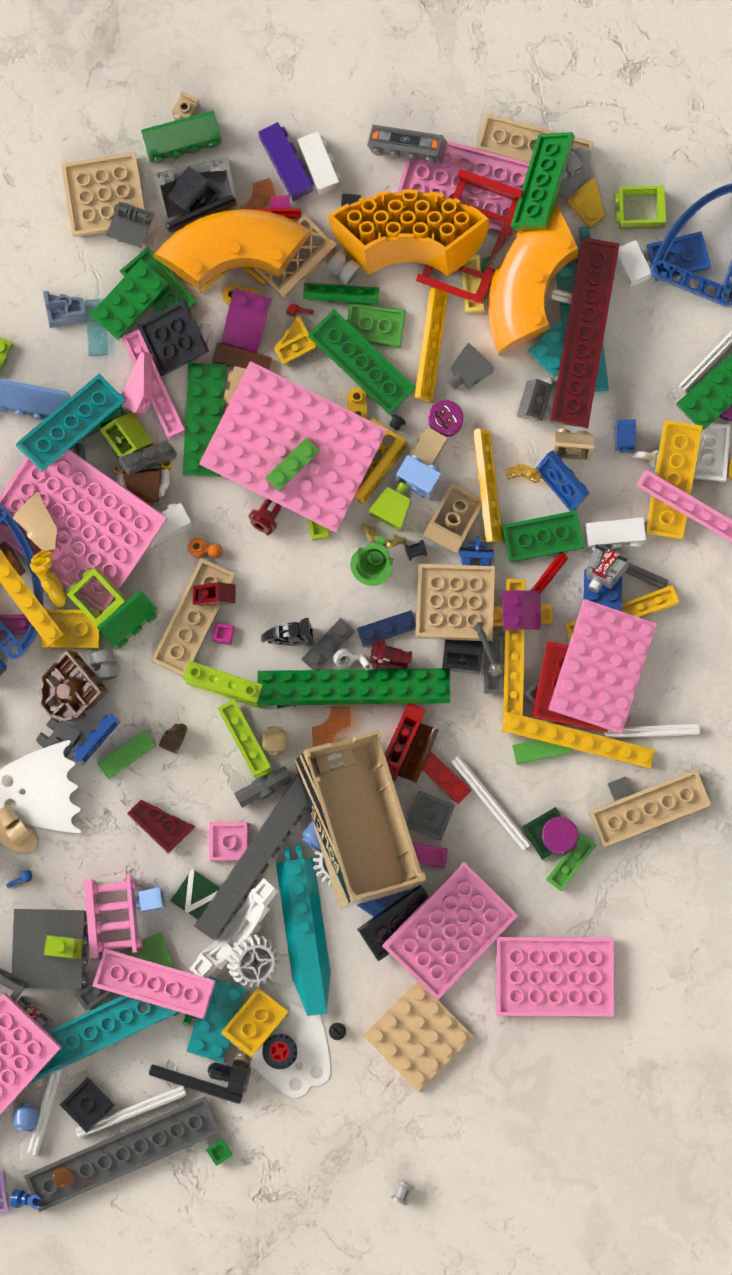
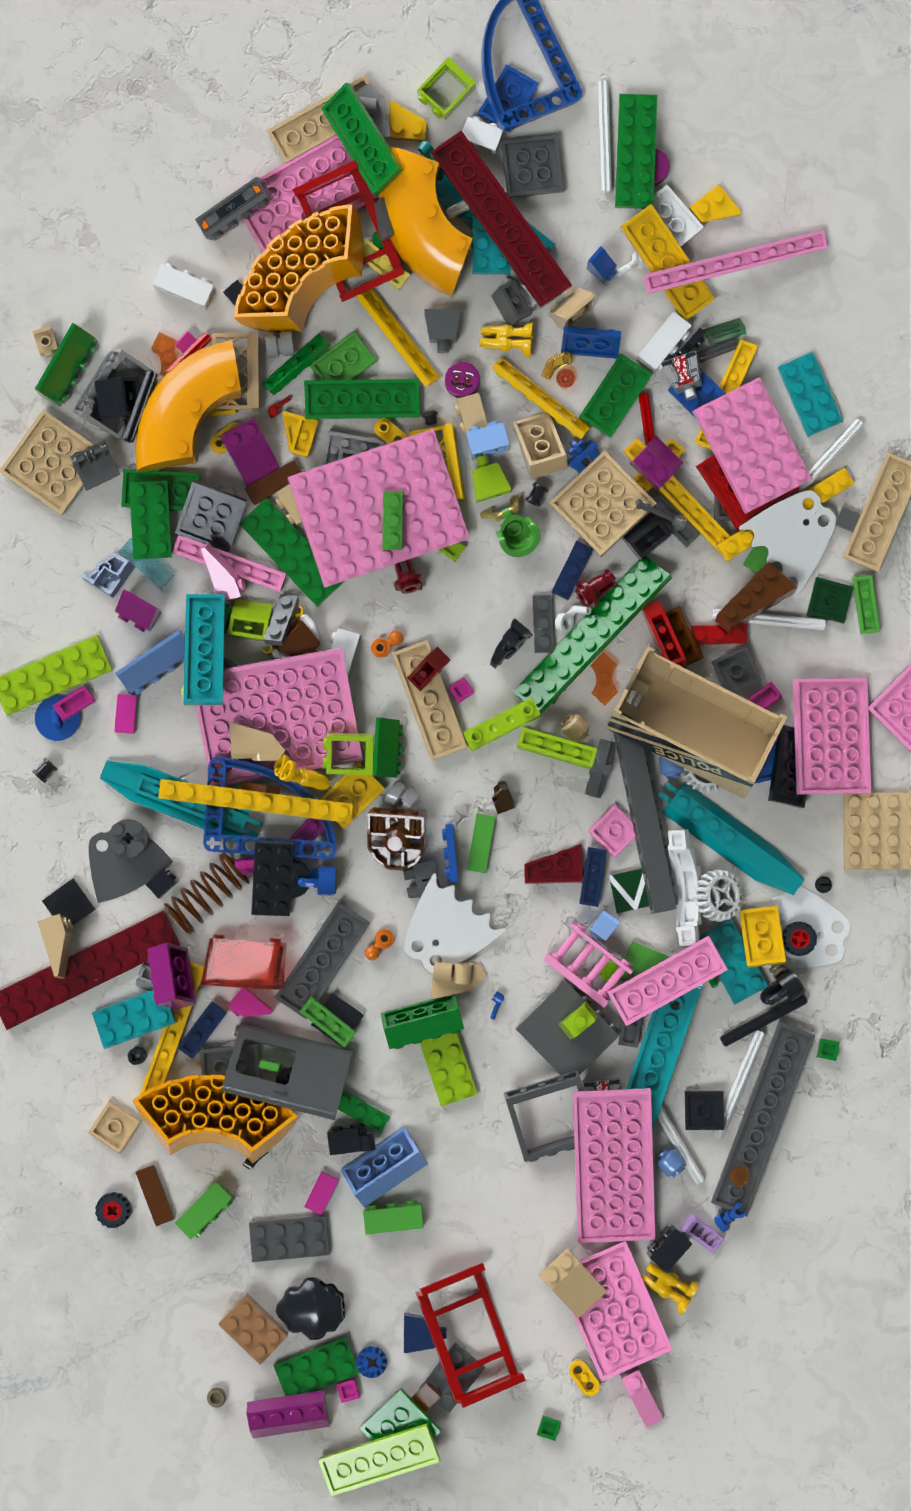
camera: 50 degrees left, 5 degrees up
(56, 352) = (137, 610): none -> magenta slope
(122, 935) = (609, 969): none -> clear neon green plate
(179, 858) = (593, 877): none -> dark blue plate
(285, 161) = (158, 308): dark purple brick -> none
(315, 378) = (341, 443): none -> light grey plate
(499, 777) = (757, 596): none -> reddish brown wedge
(506, 415) = (502, 339): none -> yellow piece
(520, 489) = (565, 378): none -> clear orange tile
(560, 835) = (841, 593): magenta head -> none
(562, 760) = (788, 539): none -> white piece
(638, 554) = (696, 340): none -> black plate
(647, 319) = (532, 166): none -> dark grey plate
(666, 568) = (725, 331): none -> clear green plate
(683, 673) = (810, 394): none -> teal plate

